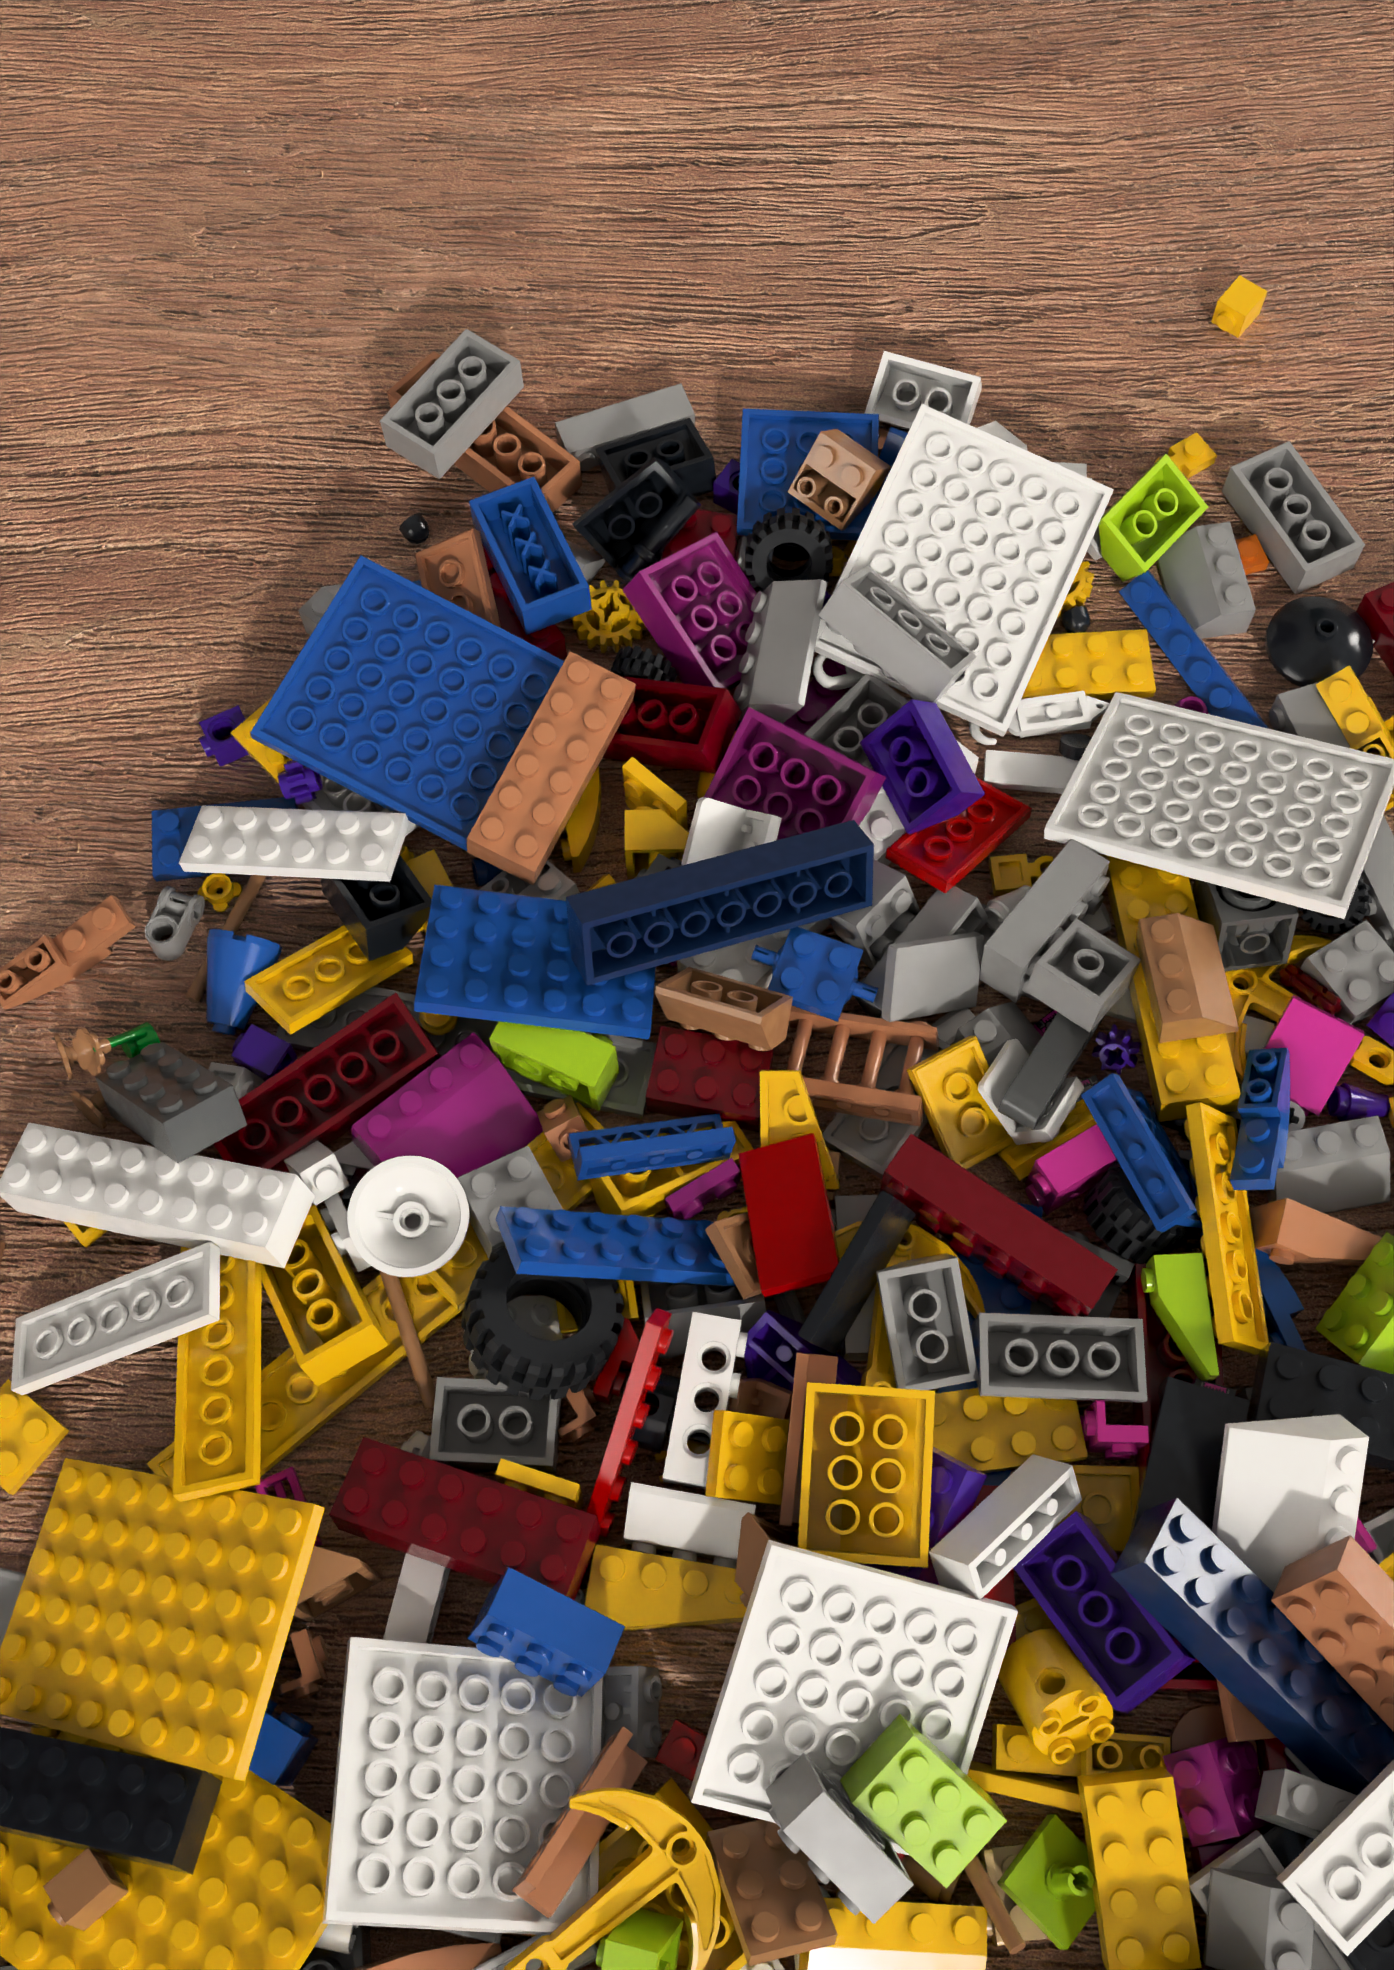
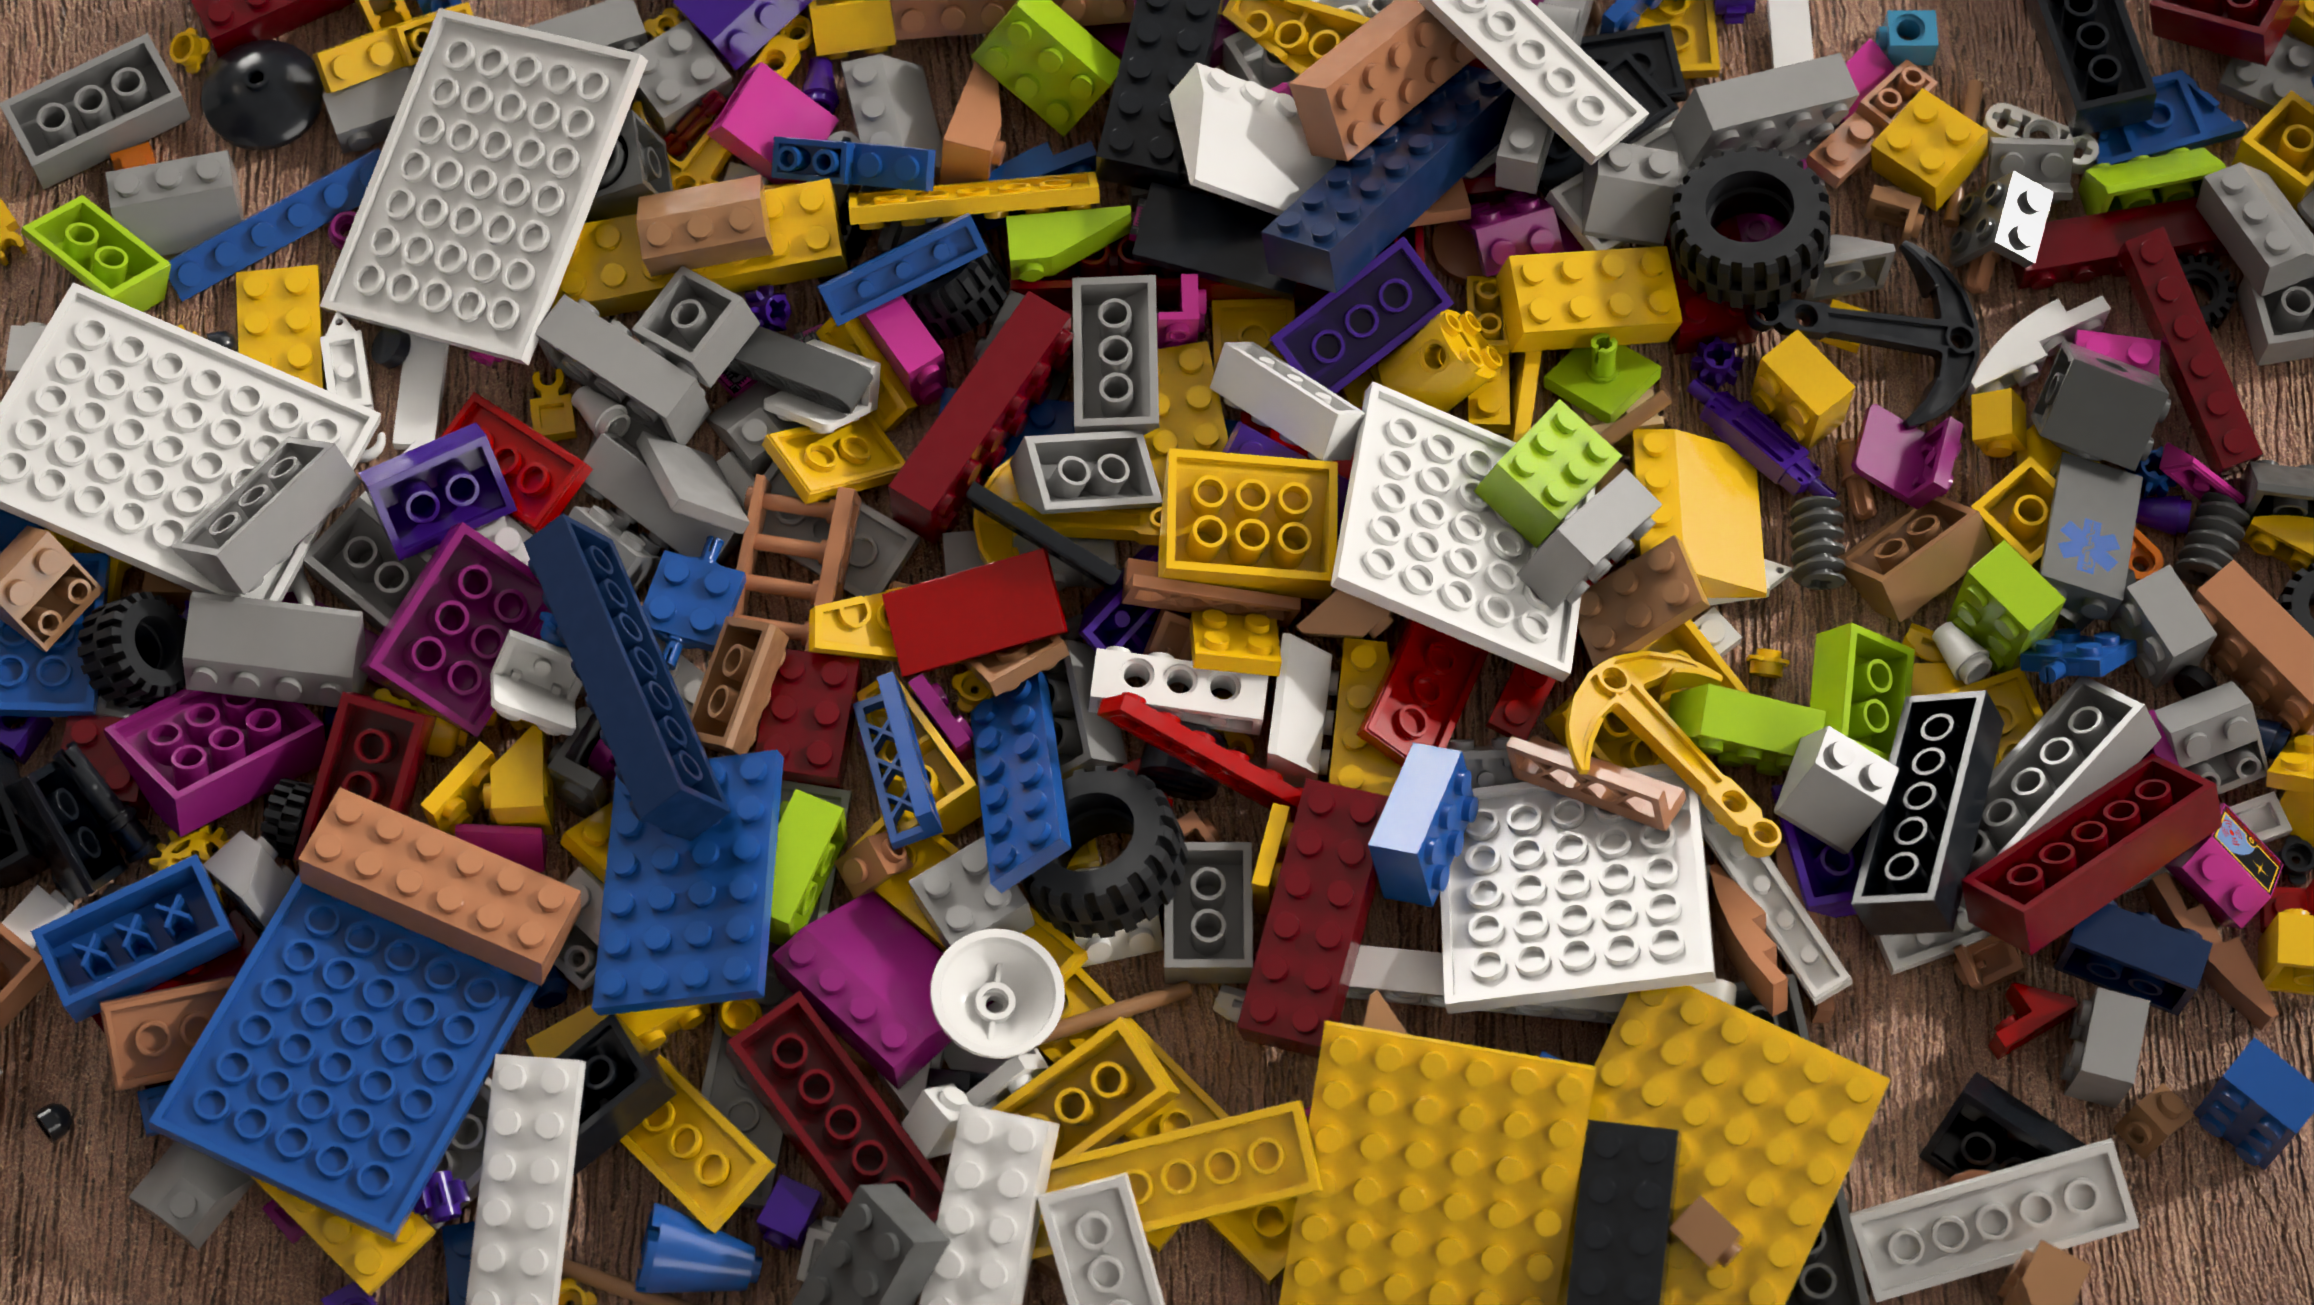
camera: 95 degrees left, 0 degrees up
(569, 505) = (35, 911): none -> white brick
(585, 633) = (251, 877): none -> light grey slope
(612, 838) = (516, 843): none -> dark pink slope
(678, 1639) = (1421, 692): none -> red tile
(1357, 586) = (189, 49): none -> yellow plate

